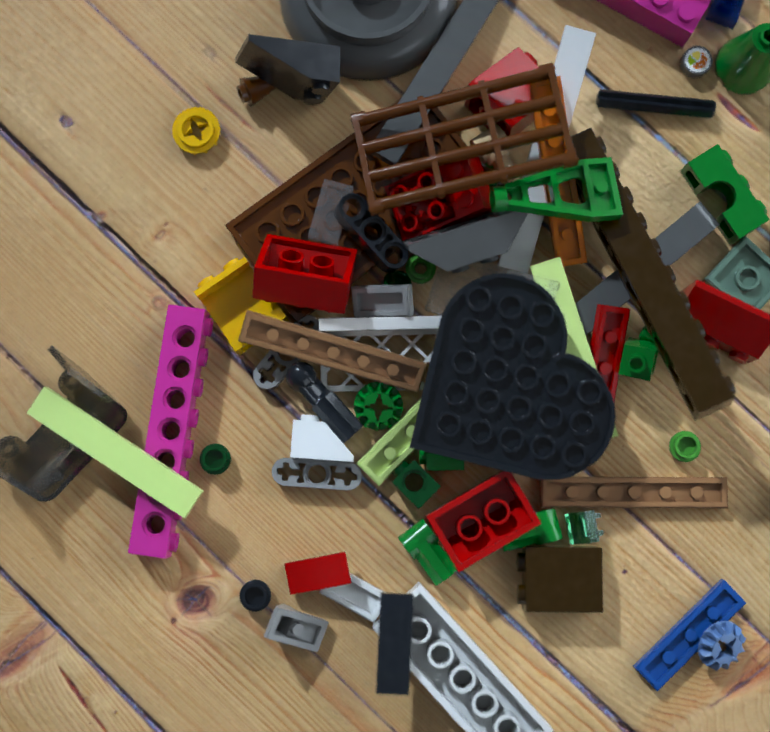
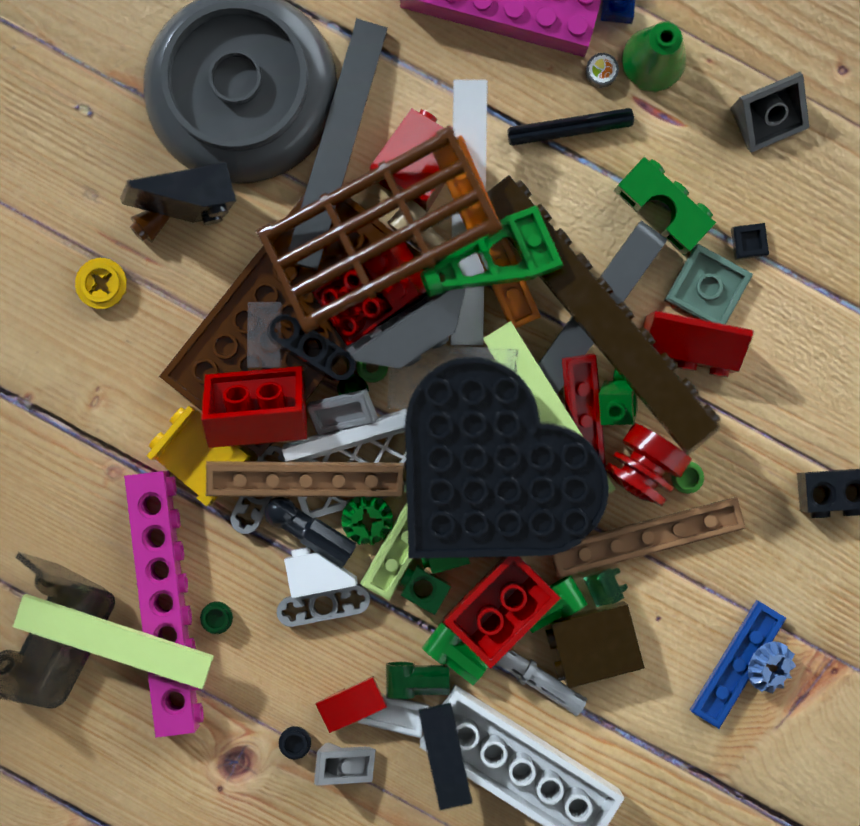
camera: 10 degrees left, 5 degrees up
(378, 565) = (407, 680): none -> dark green piece
(503, 602) = (529, 673): none -> light grey pin
(658, 417) = (647, 464): none -> red wheel

